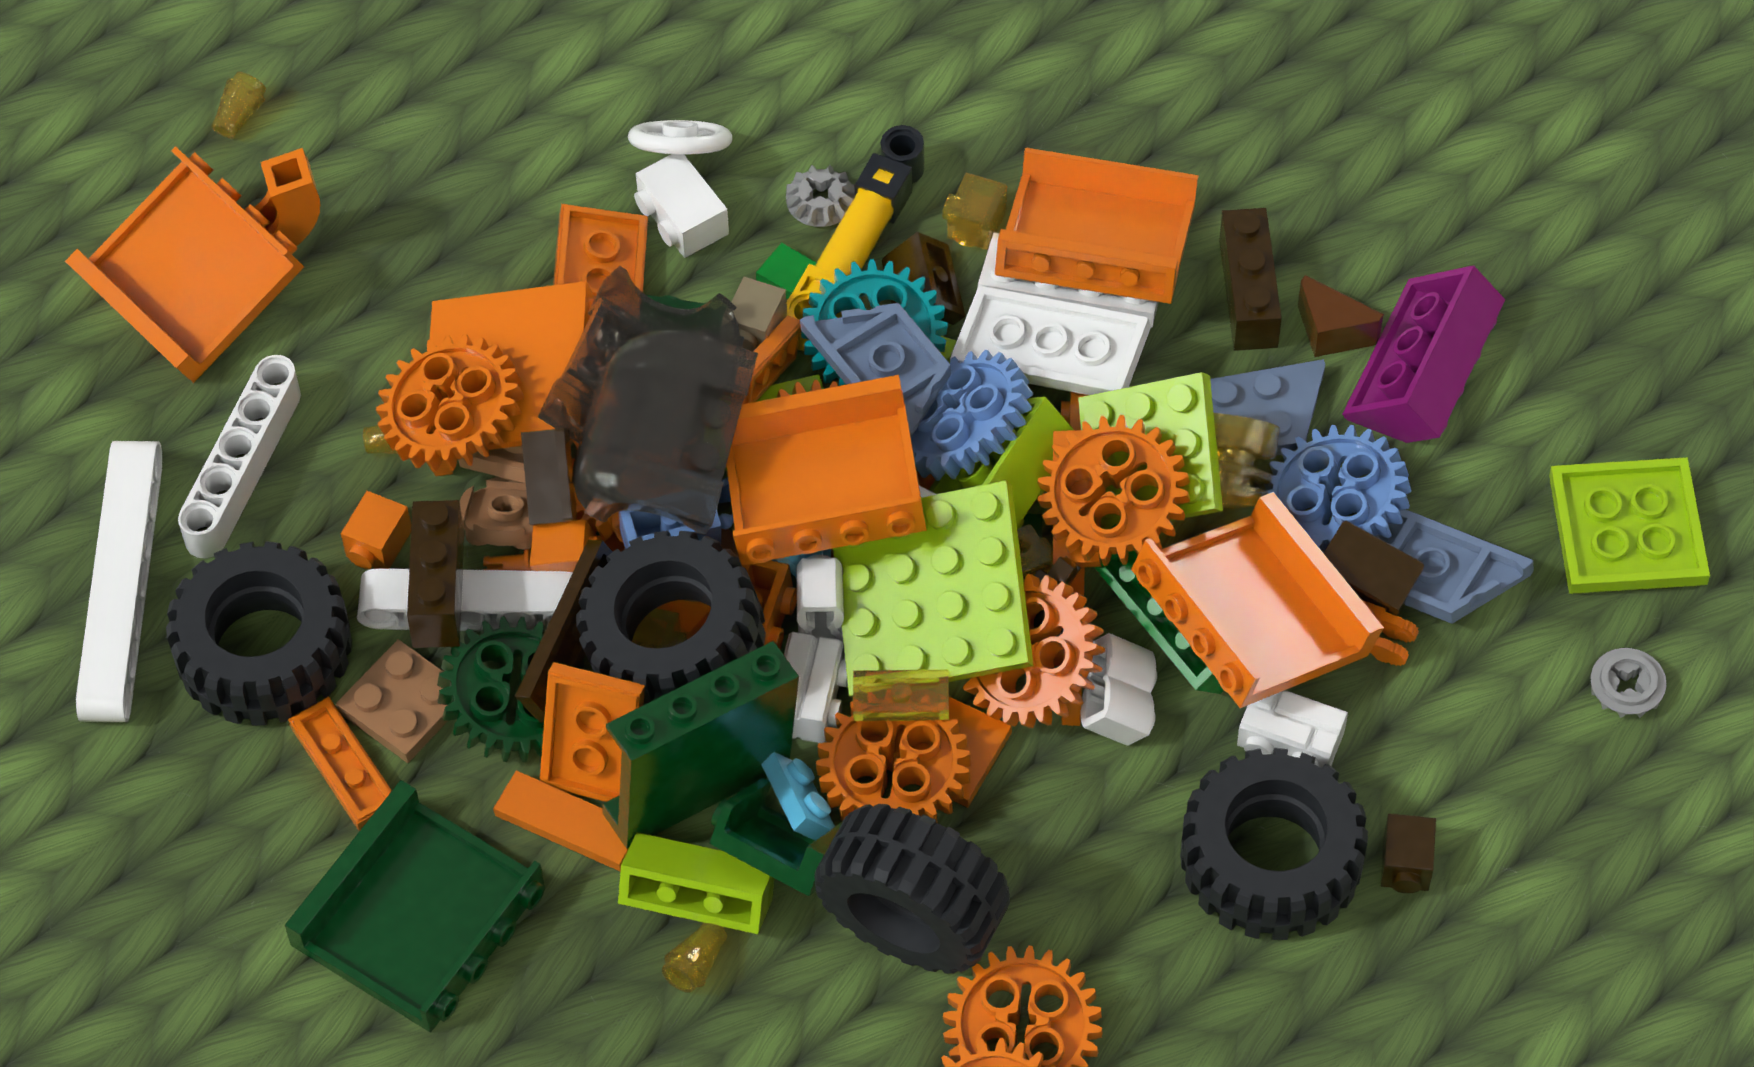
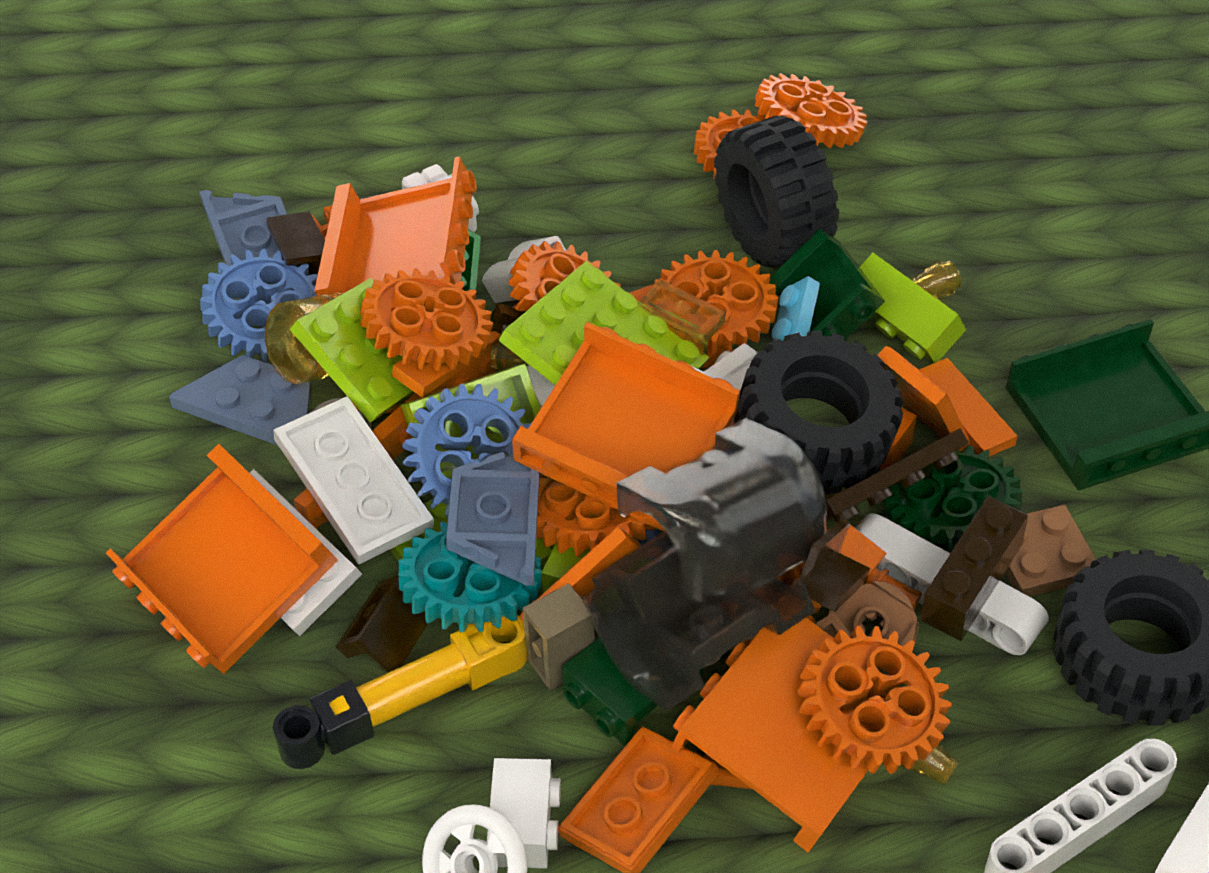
camera: 145 degrees left, 10 degrees down
(341, 760) = (1112, 517): orange tile -> none
(376, 532) = (992, 678): orange brick -> none
(701, 742) = (866, 304): dark green panel -> none
(784, 268) = (482, 706): green tile -> none
(819, 211) = (412, 763): light grey gear -> none
(975, 211) = (291, 649): clear yellow brick -> none
(1250, 279) = (153, 470): dark brown brick -> none
(1281, 789) = (520, 116): black tyre -> none
(1335, 320) = (138, 412): reddish brown slope -> none
(1408, 853) = (441, 117): dark brown brick -> none
(1425, 355) = (105, 359): magenta slope -> none
(1626, 664) = (206, 131): light grey gear -> none
(1629, 525) = (112, 202): lime plate -> none

